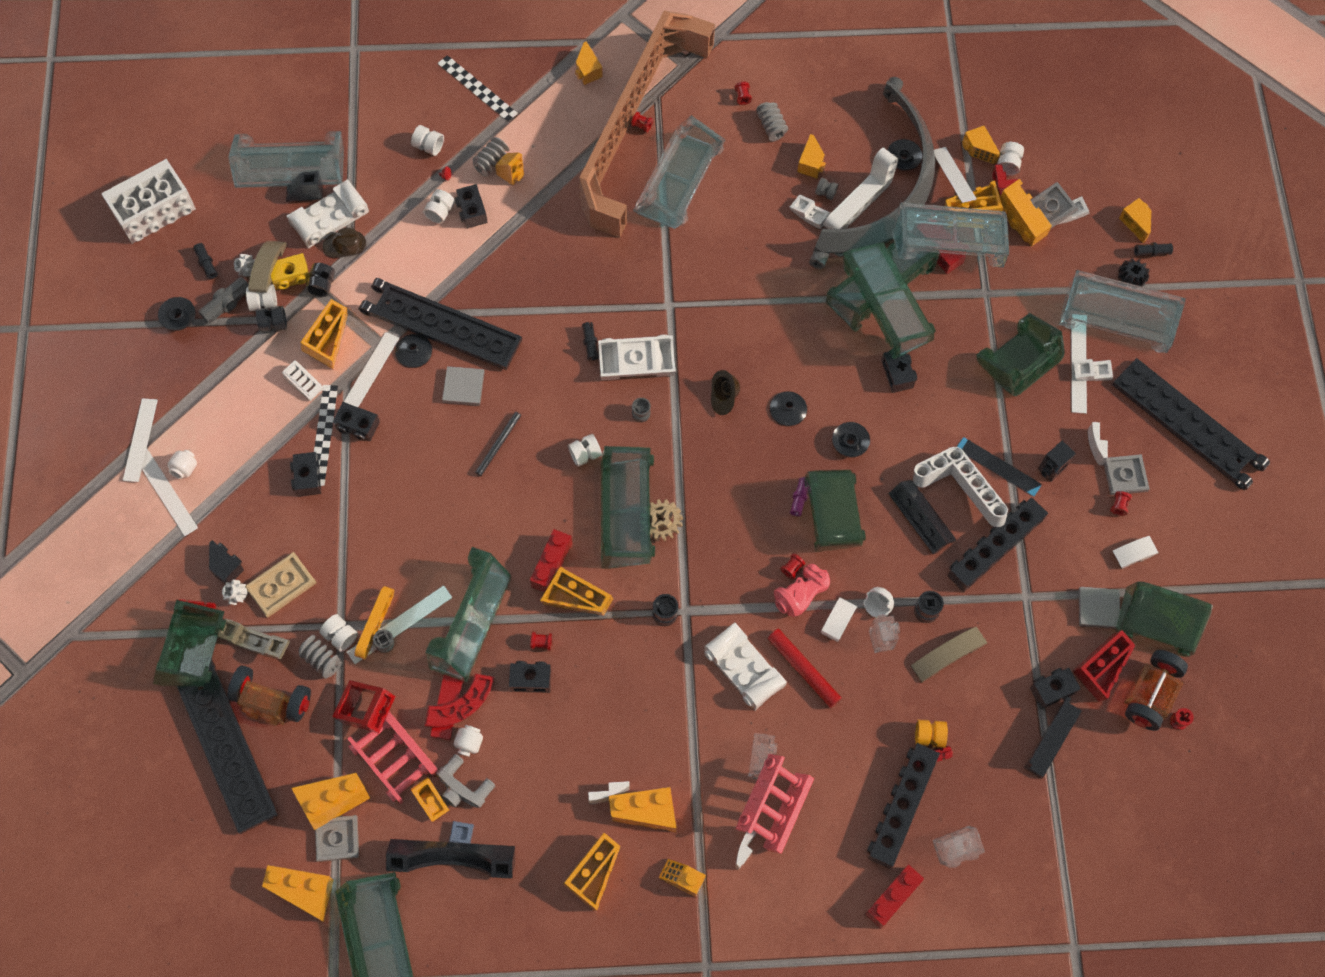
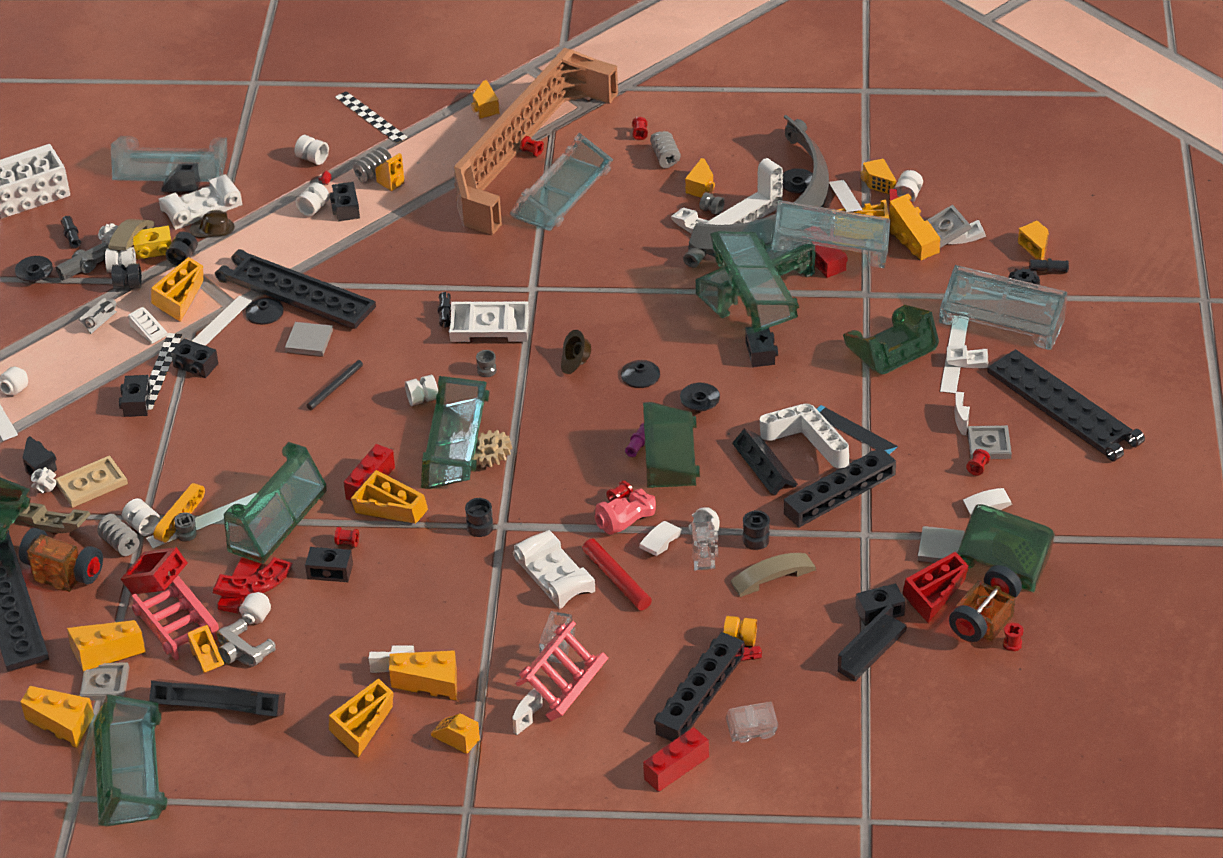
camera: 10 degrees right, 25 degrees down
(251, 370) = (98, 314): none -> light grey hinge
(461, 832) = (234, 681): sand blue tile -> none
(1056, 461) = (912, 420): black brick -> none

